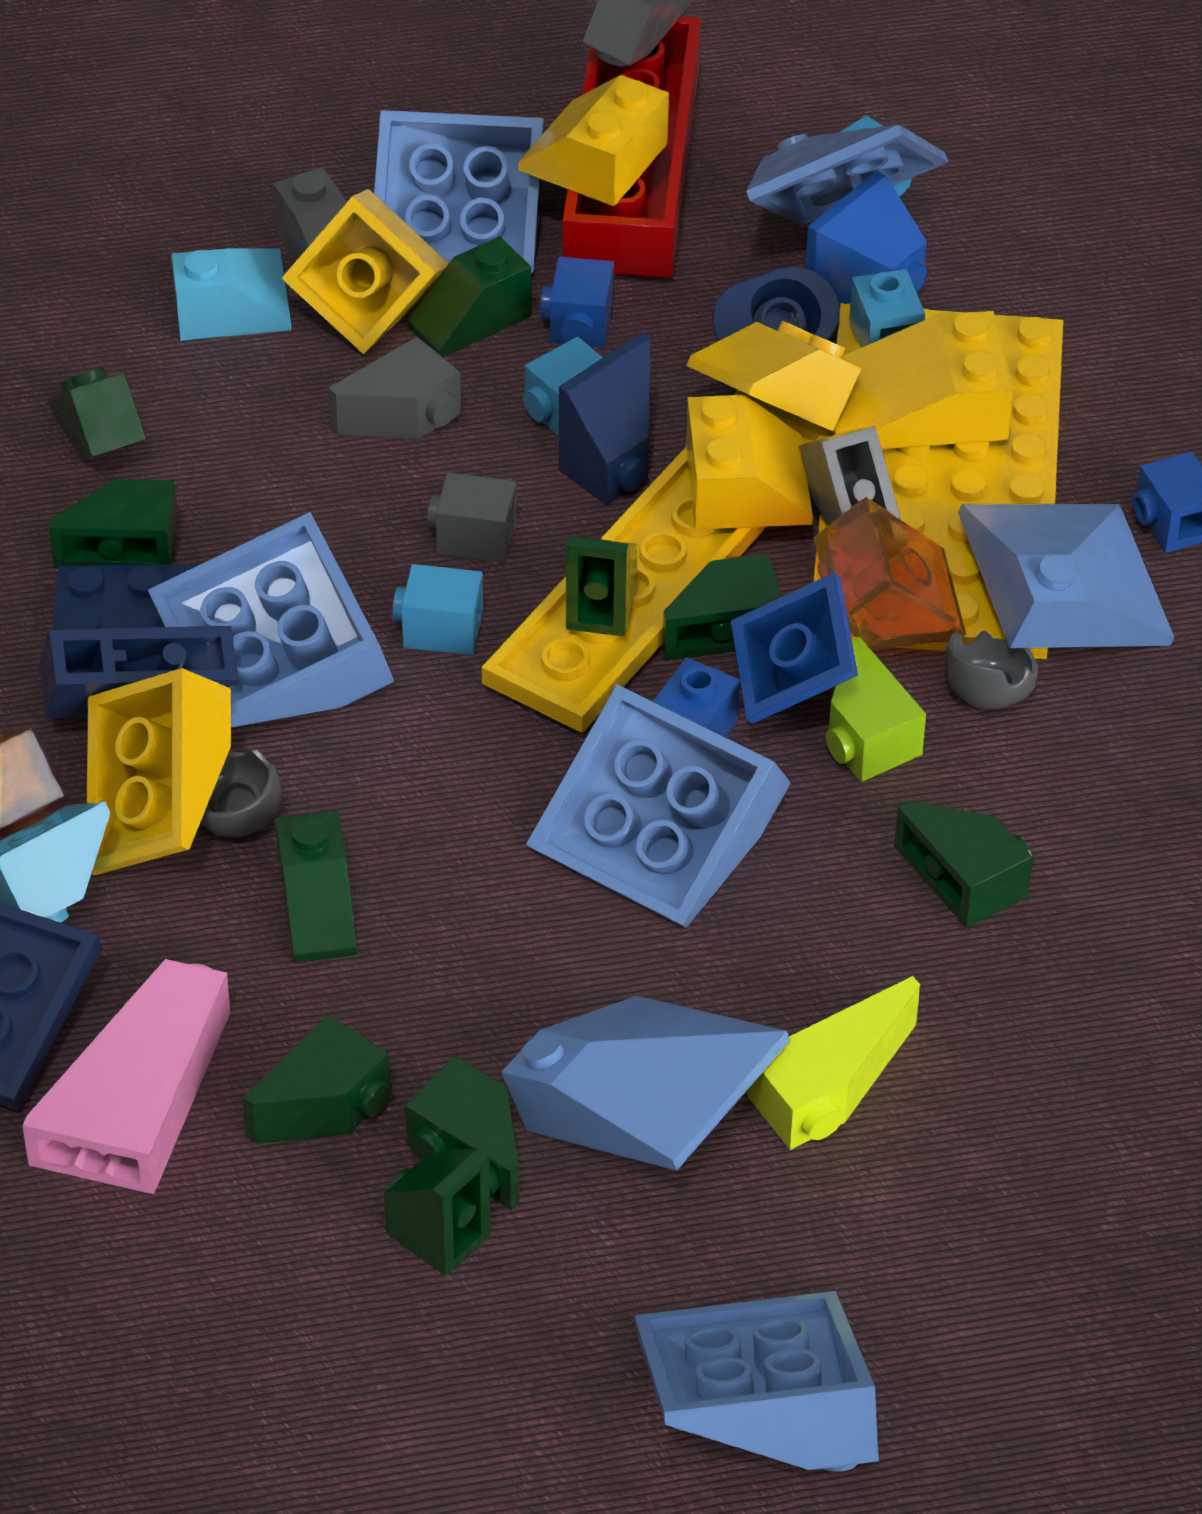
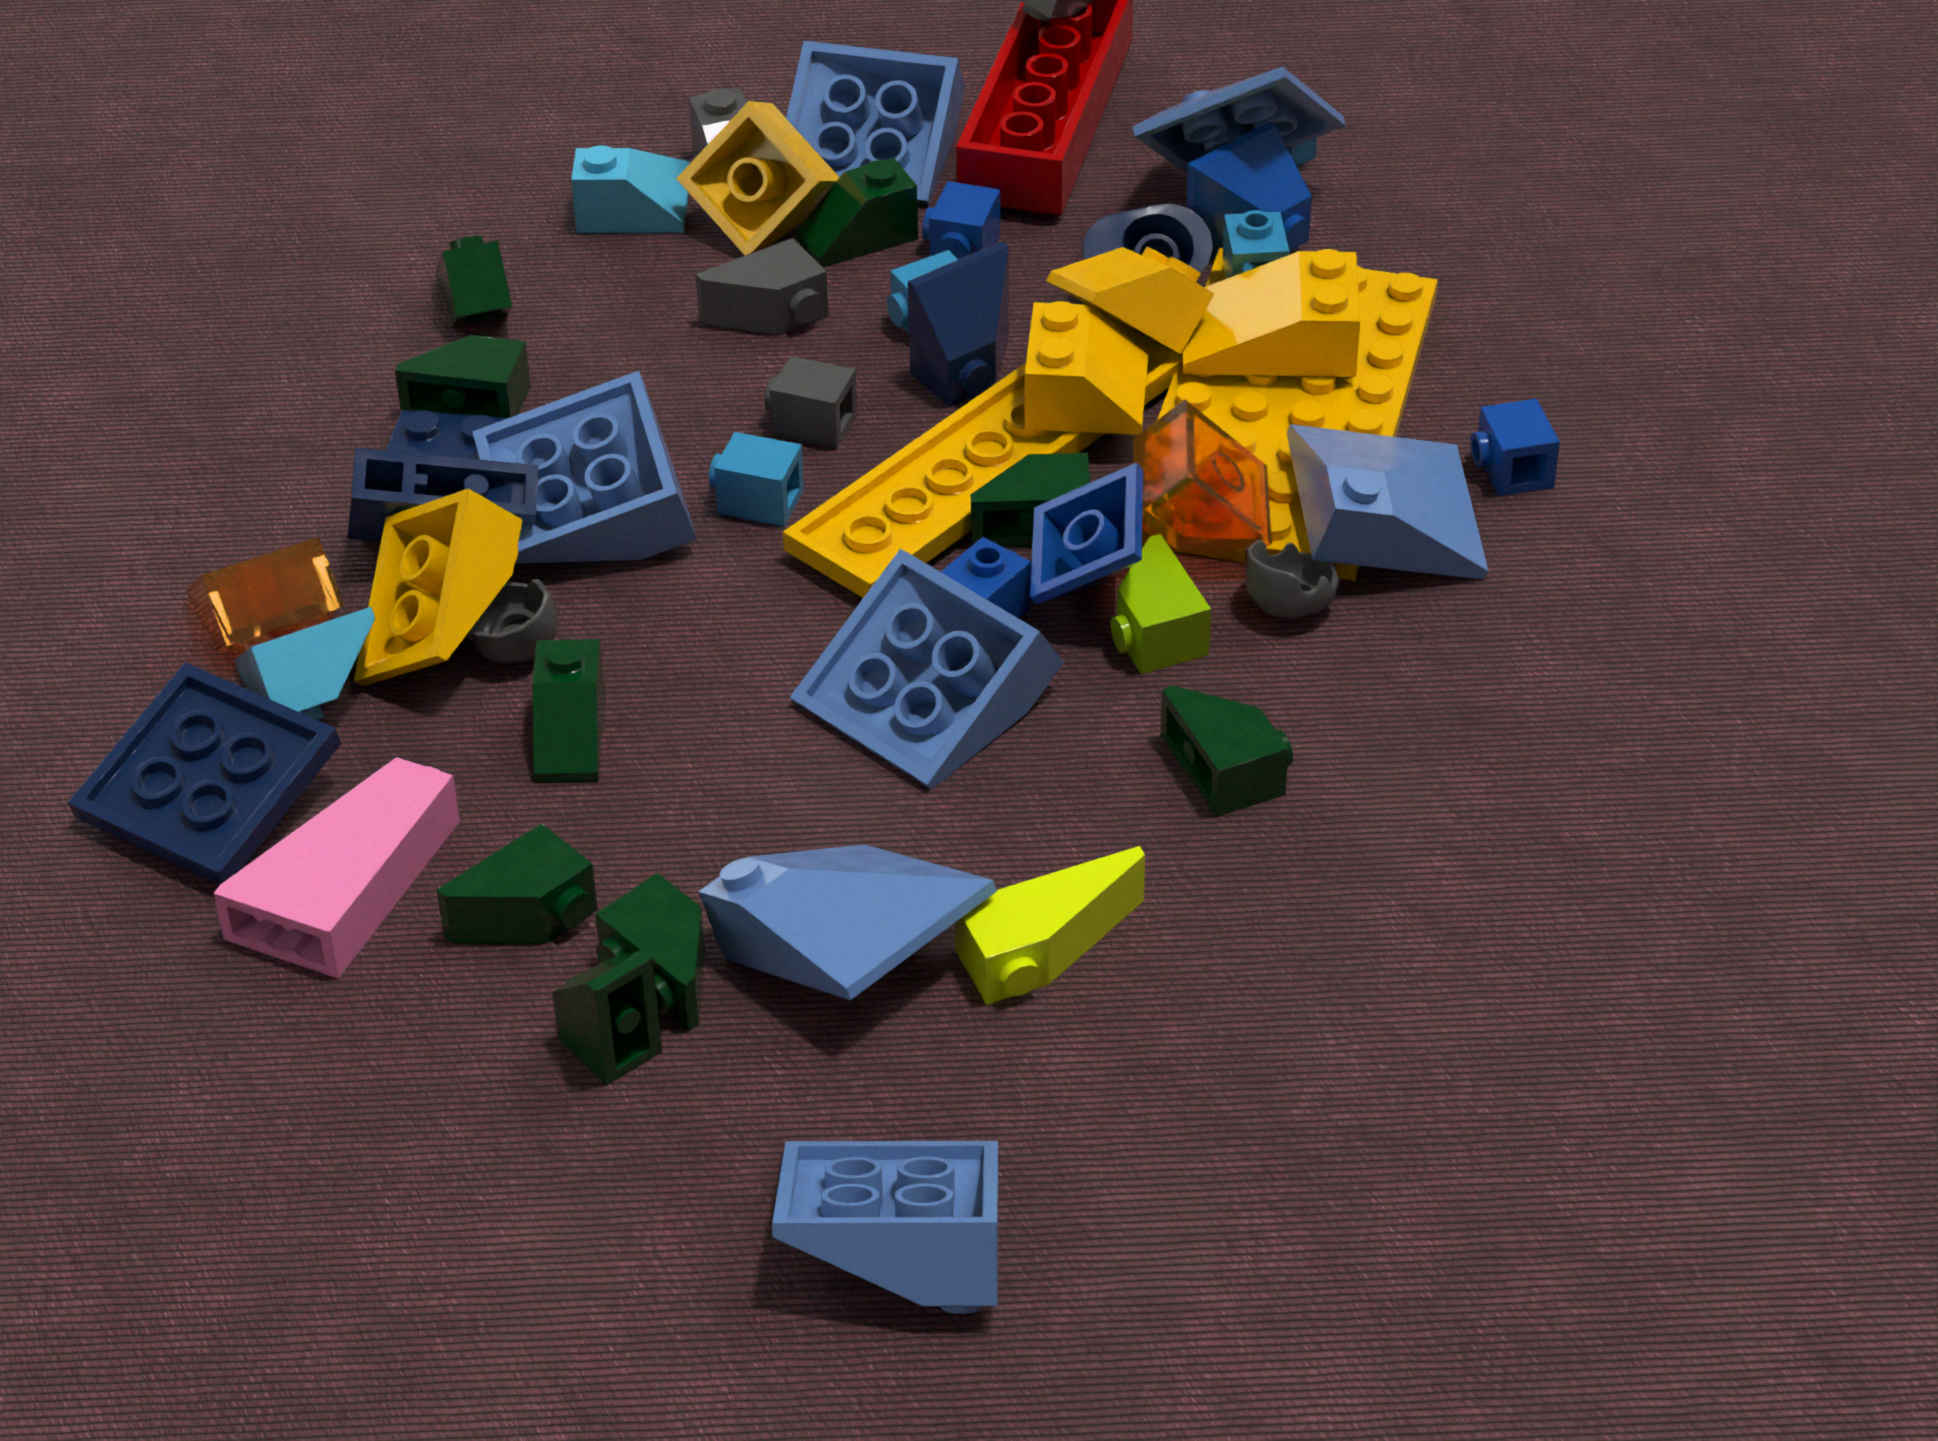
camera: 10 degrees right, 5 degrees down
(599, 584) = (910, 459): dark green slope -> none
(602, 140) = (1010, 79): yellow slope -> none
(846, 470) = (1179, 374): dark grey slope -> none

